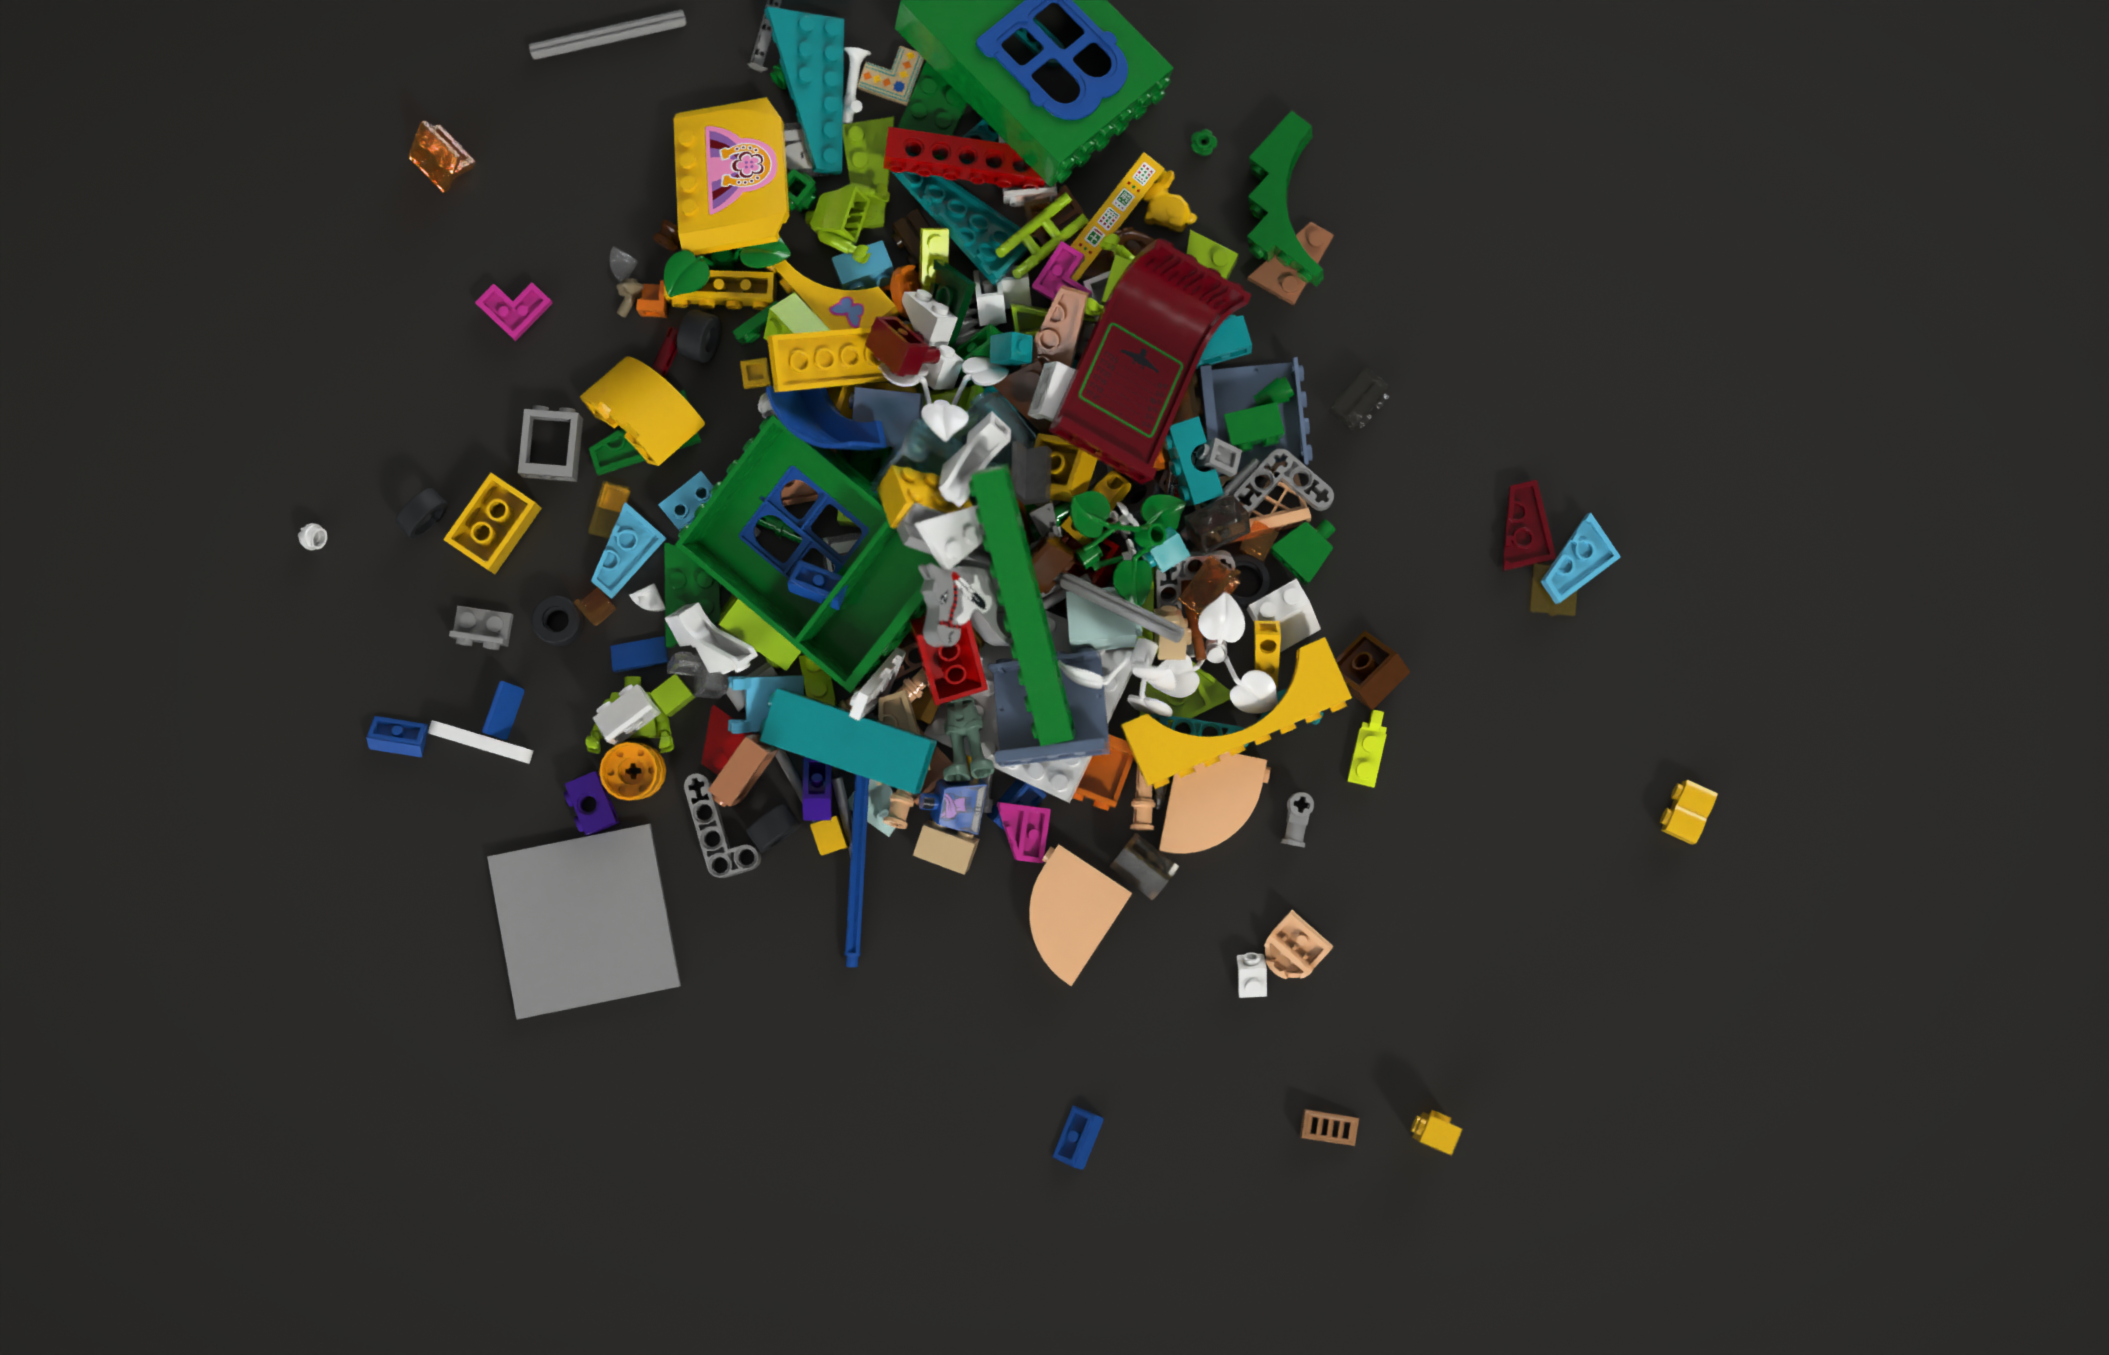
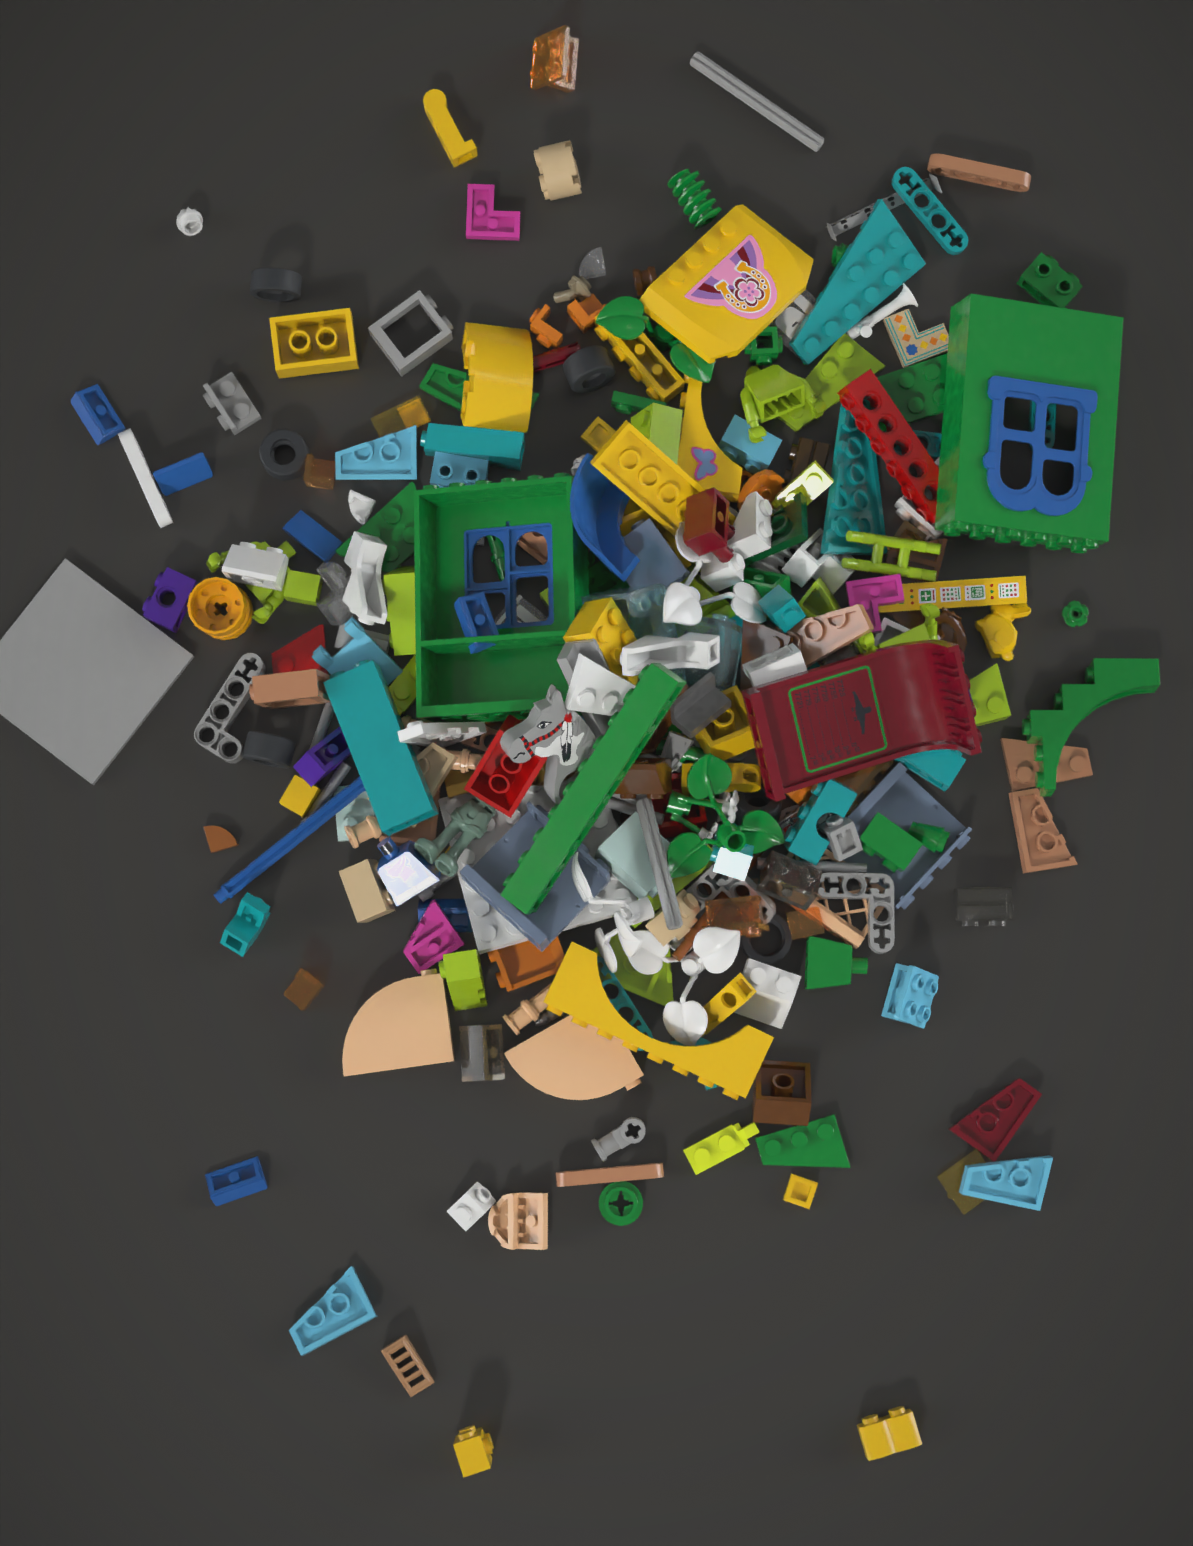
camera: 45 degrees right, 0 degrees up
(418, 282) = (446, 130): none -> yellow leg
(528, 225) = (559, 170): none -> tan brick
(639, 144) = (693, 198): none -> green piece
(642, 345) = (545, 333): none -> orange bracket
(697, 454) = (500, 447): none -> teal slope
(807, 925) = (219, 838): none -> dark orange tile
(890, 961) = (246, 924): none -> teal brick
(978, 960) = (303, 989): none -> clear orange panel
(1078, 830) = (464, 979): none -> lime wedge
(1243, 1150) = (335, 1314): none -> medium azure wing
(1318, 851) = (609, 1174): none -> nougat beam
(1343, 315) = (1036, 834): none -> nougat wing
(1359, 860) = (631, 1211): none -> green gear
(1379, 512) = (910, 995): none -> medium azure bracket
(1423, 687) = (808, 1145): none -> green wing
(1453, 721) = (800, 1191): none -> yellow tile

